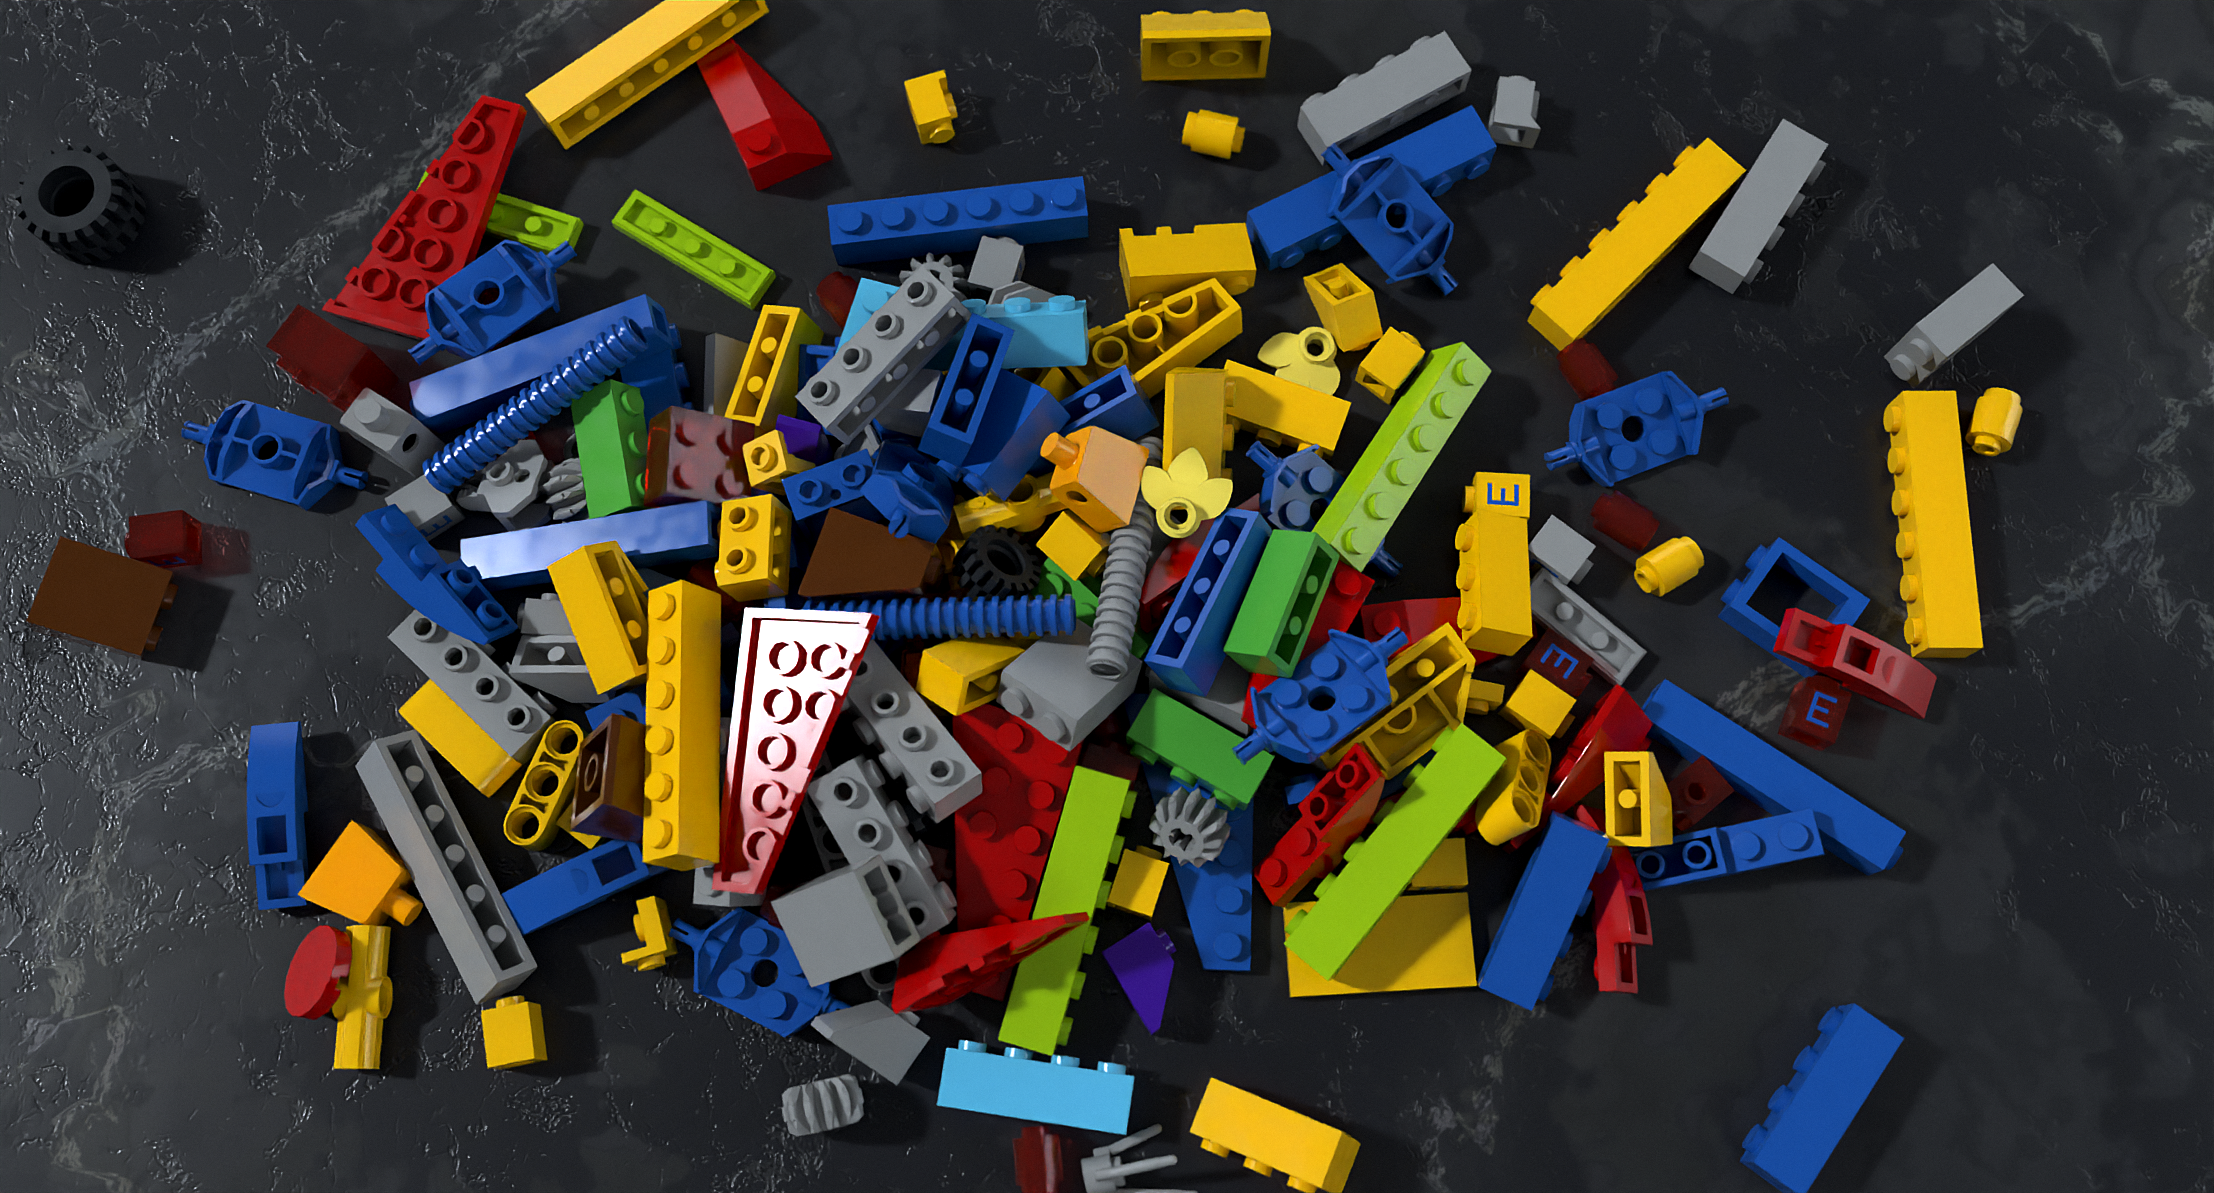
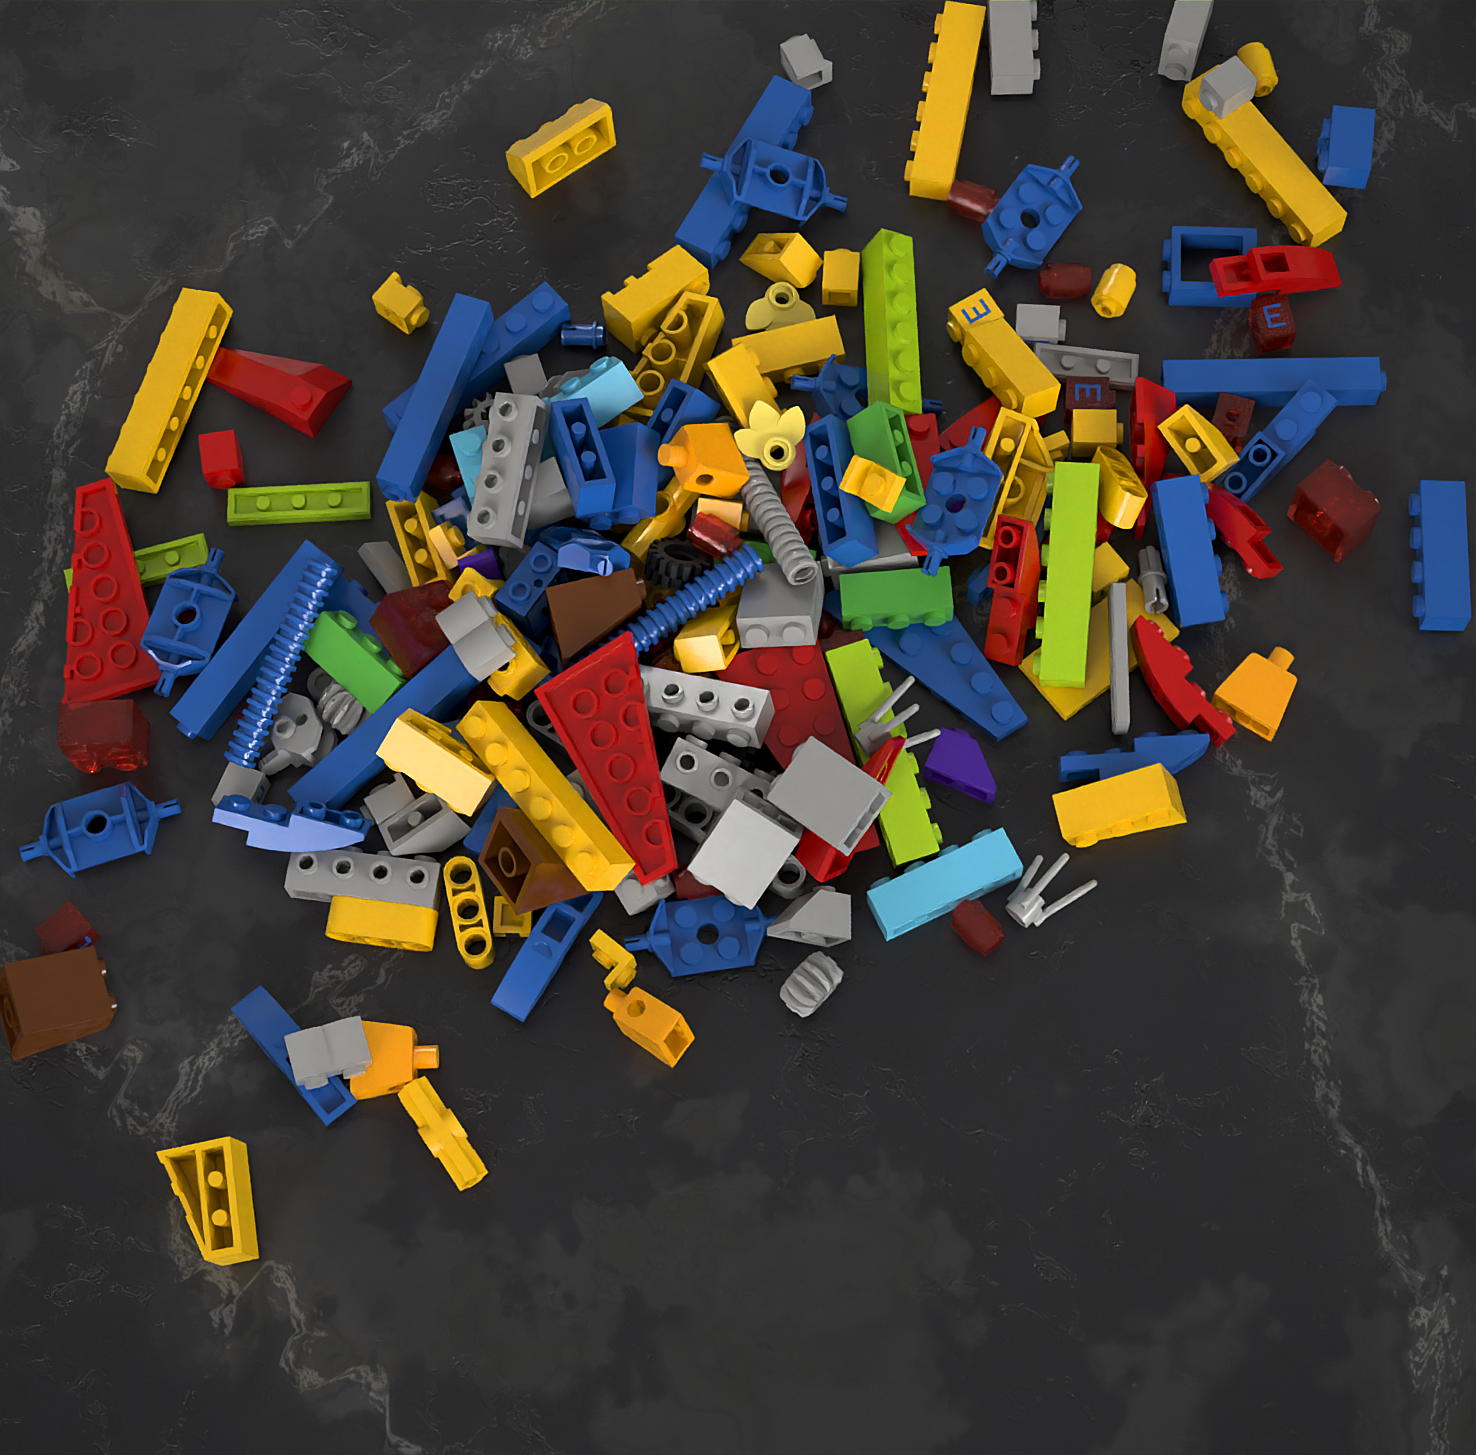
camera: 30 degrees left, 5 degrees down
(100, 913) = (216, 1196): none -> yellow wedge
(295, 842) = (328, 1051): none -> light grey brick
(316, 971) = (401, 1134): red tile -> none
(384, 429) = (176, 757): light grey torso -> none
(445, 866) = (438, 1007): light grey brick -> none
(513, 1033) = (566, 1084): yellow brick -> none
(634, 1031) = (650, 1023): none -> light orange torso
(648, 155) = (221, 459): none -> red brick
(725, 511) = (476, 635): none -> light grey brick
(786, 384) = (450, 543): none -> yellow bracket
(878, 229) = (435, 398): none -> blue brick
(955, 933) = (828, 795): none -> light grey brick
(1050, 563) = (714, 535): none -> clear red brick
(1060, 894) = (873, 735): none -> light grey plant
(1089, 256) = (580, 334): none -> blue pin
(1138, 882) = (926, 717): yellow brick -> none
(1189, 827) = (925, 648): light grey gear -> none
(1213, 133) = (610, 201): yellow brick -> none
(1245, 620) = (872, 483): none -> yellow bracket
(1345, 1106) = (1149, 749): none -> blue slope
(1384, 96) = (710, 106): light grey brick -> none
(1387, 975) = (1118, 659): none -> light grey tile
(1426, 1025) = (1165, 674): none -> red slope
(1486, 910) = (1152, 580): none -> light grey axle
(1514, 1114) = (1258, 692): none -> light orange torso
(1736, 971) = (1334, 510): none -> clear red brick
(1946, 424) = (1227, 87): none -> light grey brick
(2033, 574) = (1346, 146): none -> blue brick

